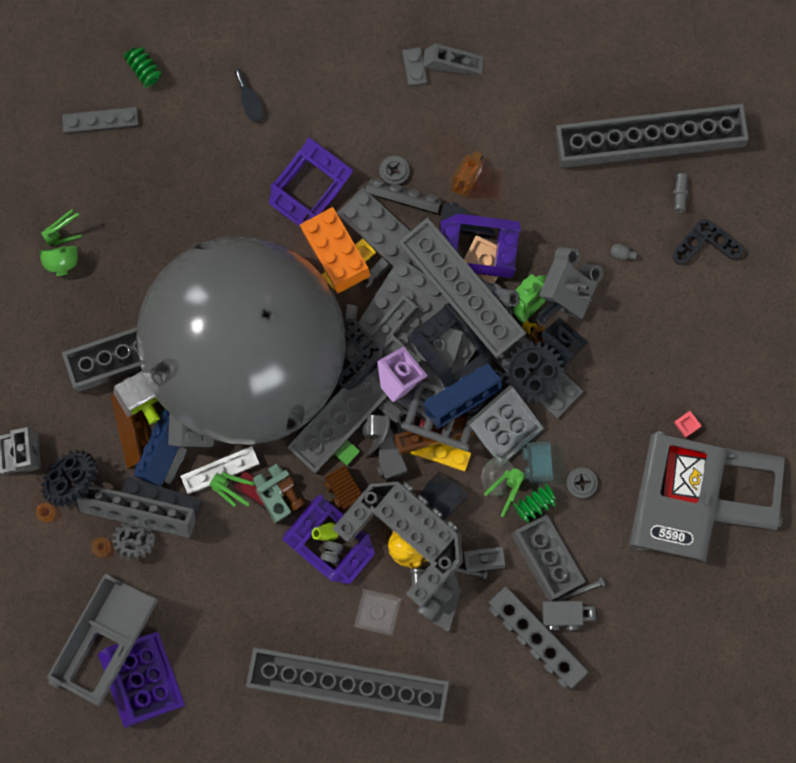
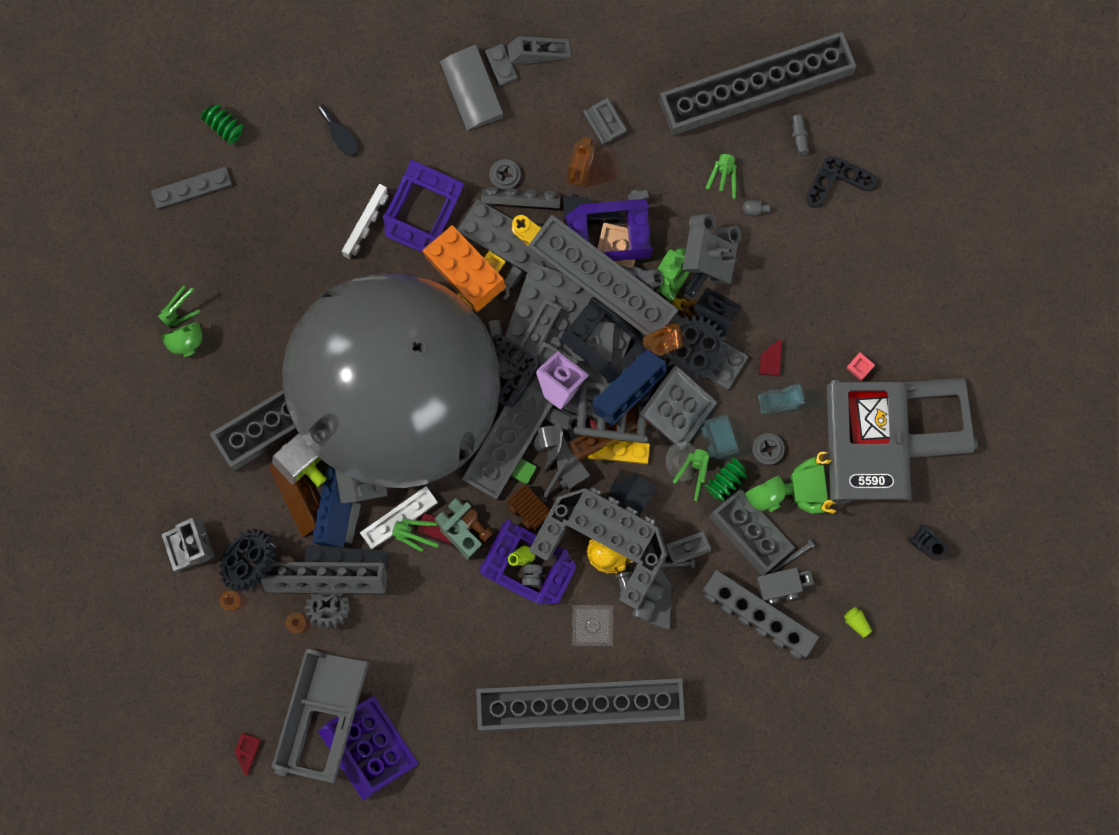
camera: 15 degrees left, 0 degrees up
(27, 657) = (246, 751): none -> dark red tile
(248, 192) = (361, 229): none -> white plate
(359, 482) = (544, 498): none -> dark grey piece
(381, 82) = (471, 88): none -> dark grey slope
(400, 230) = (528, 232): none -> yellow piece
(499, 141) = (604, 121): none -> dark grey plate
(507, 358) = (664, 339): none -> clear orange piece
(514, 216) = (638, 194): none -> dark grey plate
(570, 526) = (767, 495): none -> bright green cylinder
(603, 206) = (725, 166): none -> bright green plant
(603, 399) = (771, 360): none -> dark red tile
(604, 440) = (781, 400): none -> clear light blue brick
(612, 527) = (809, 486): none -> bright green torso
(629, 666) = (857, 621): none -> lime cone
(713, 605) = (927, 542): none -> black piece

